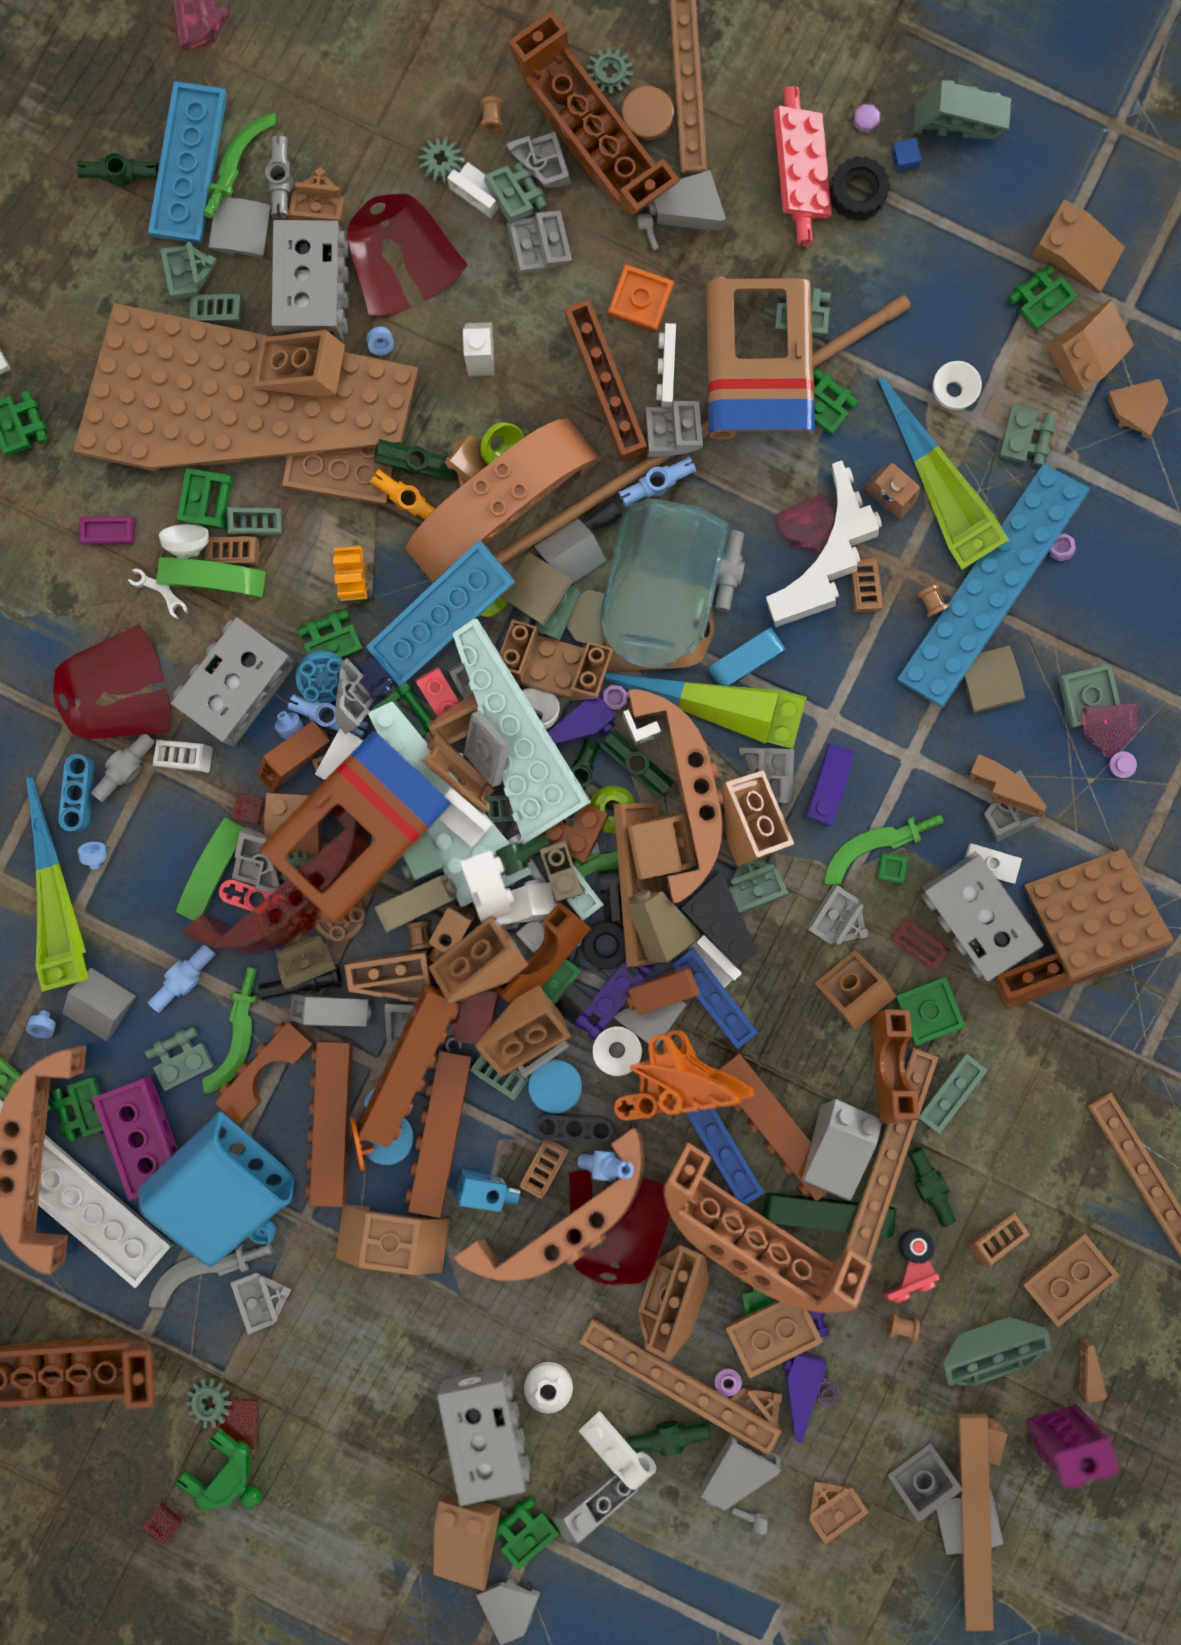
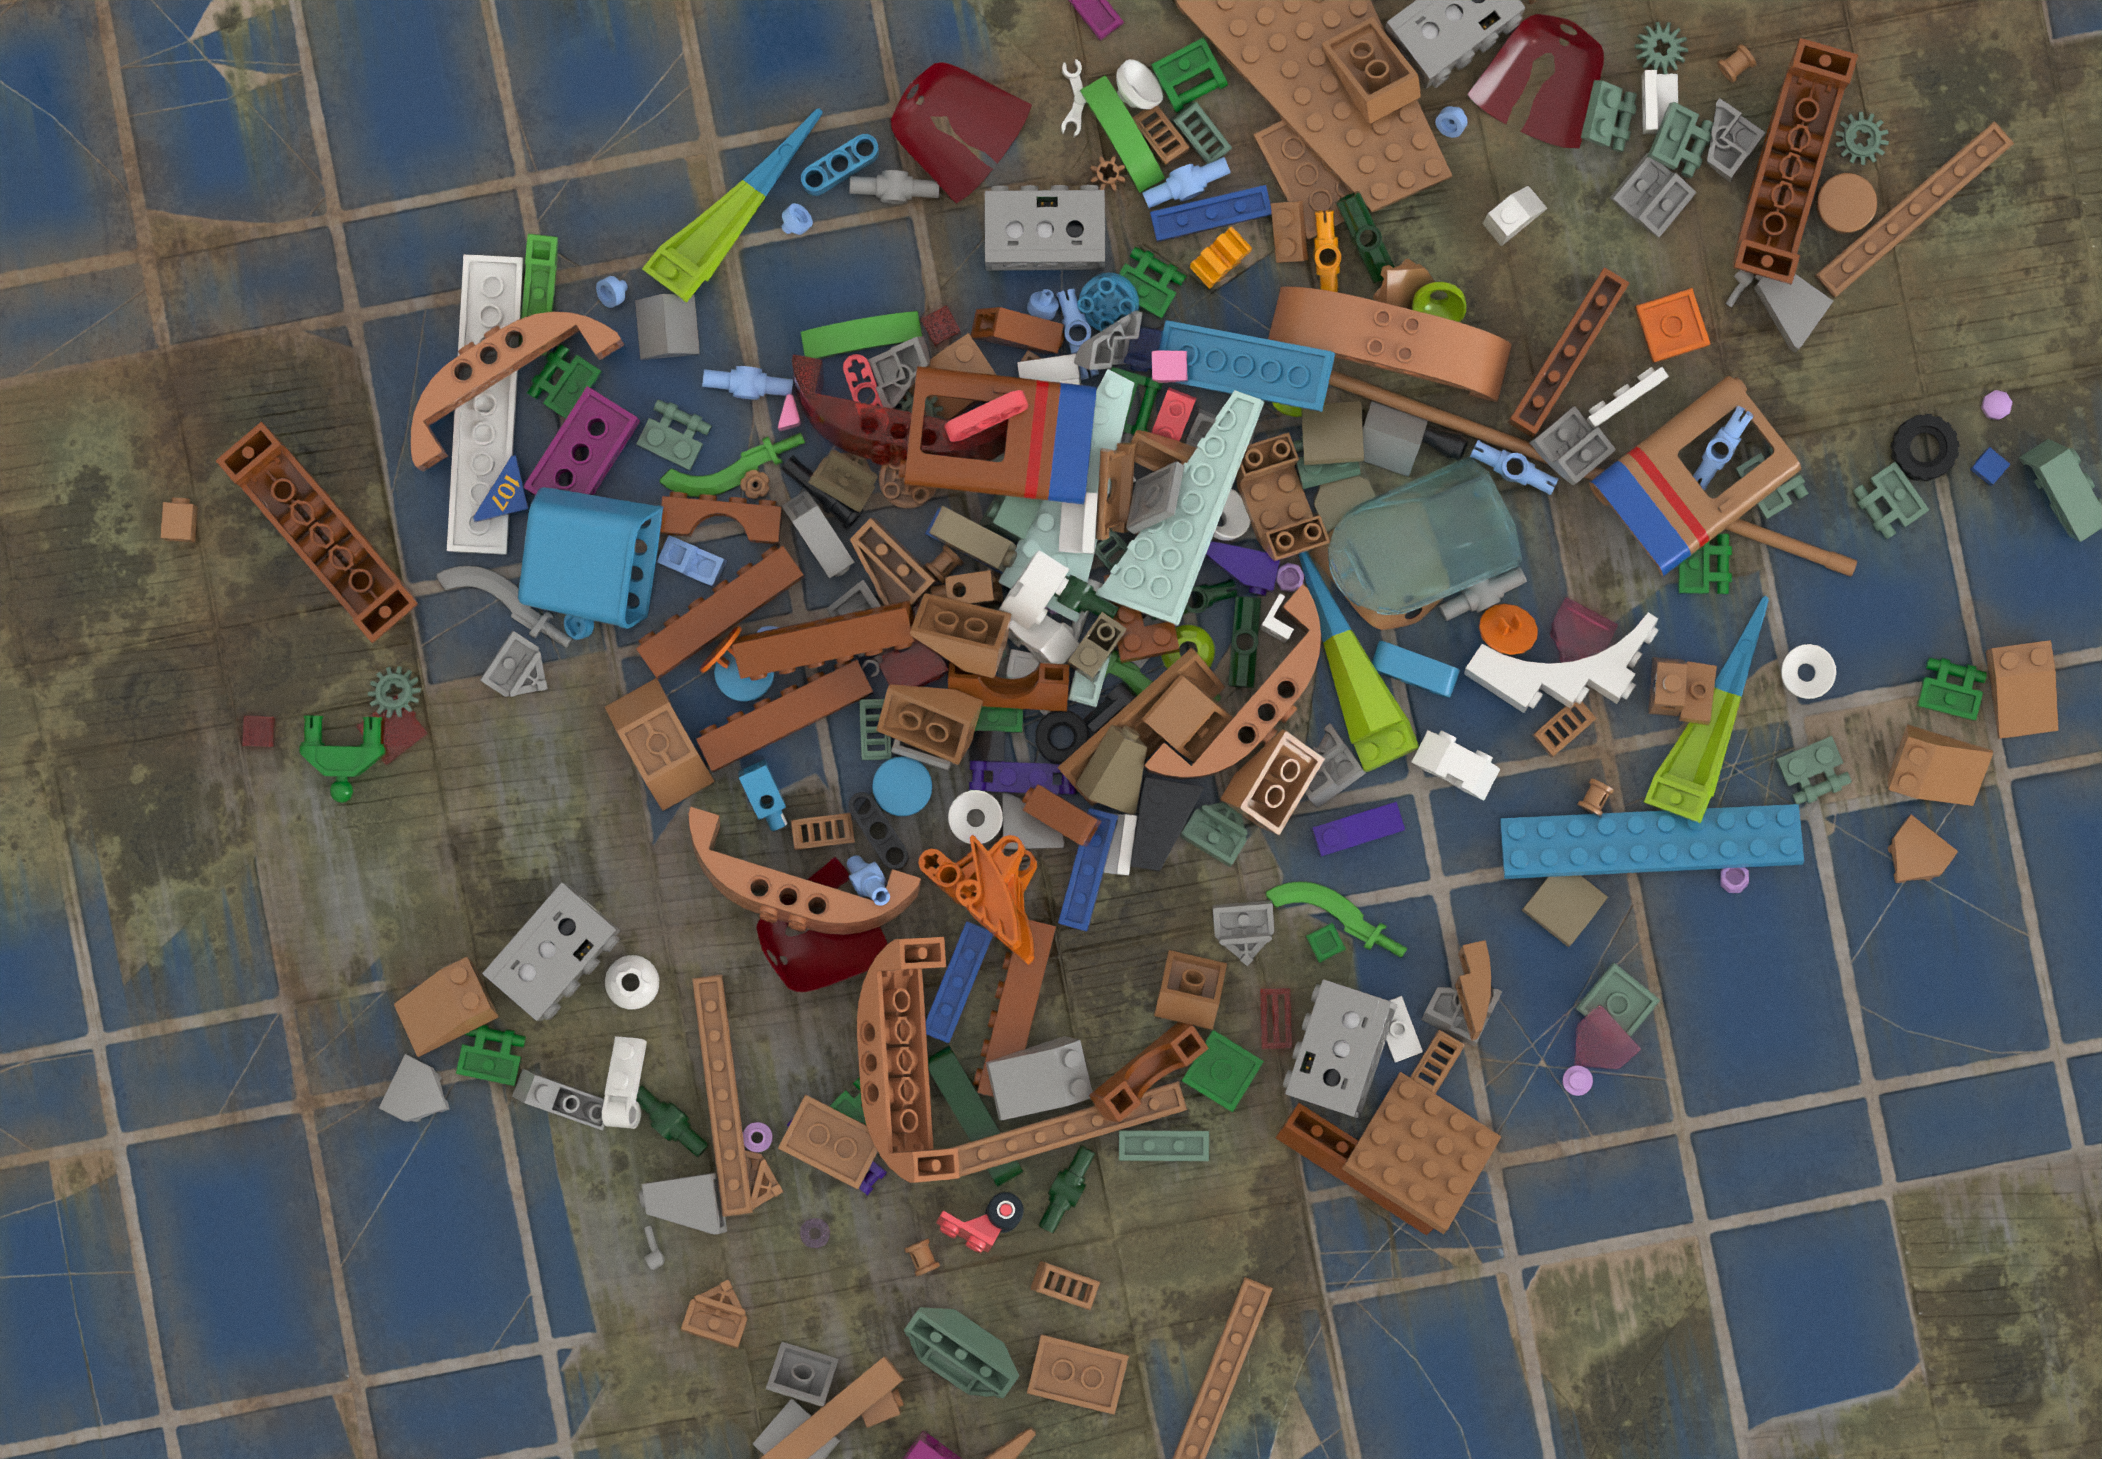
camera: 55 degrees right, 0 degrees up
(125, 1216) = (506, 494): none -> blue tile
(199, 756) = (952, 247): white slope -> none
(224, 610) = (1104, 165): none -> medium nougat gear
(228, 965) = (789, 415): none -> bright pink slope
(251, 1024) = (755, 476): none -> medium nougat plate
(279, 558) = (1186, 182): none -> light blue pin
(279, 1114) = (691, 561): none -> light blue slope
(315, 557) = (1211, 213): none -> blue plate
(332, 825) = (986, 416): none -> coral beam
(369, 512) = (1289, 231): none -> medium nougat plate
(400, 668) = (1169, 366): none -> bright pink slope
(453, 228) = (1602, 114): none -> sand green plate
(673, 1300) = (795, 1032): medium nougat wedge -> none
(750, 312) = (1731, 437): none -> light blue pin
(768, 571) = (1508, 629): none -> orange piece
(802, 164) = (1906, 378): coral plate -> none
(803, 1382) = (807, 1202): dark purple slope -> none
(837, 680) = (1456, 764): none -> white brick
(878, 231) = (1898, 495): none -> sand green plate
(917, 472) = (1699, 693): none -> medium nougat plate
(1042, 842) = (1445, 1068): none -> medium nougat slope

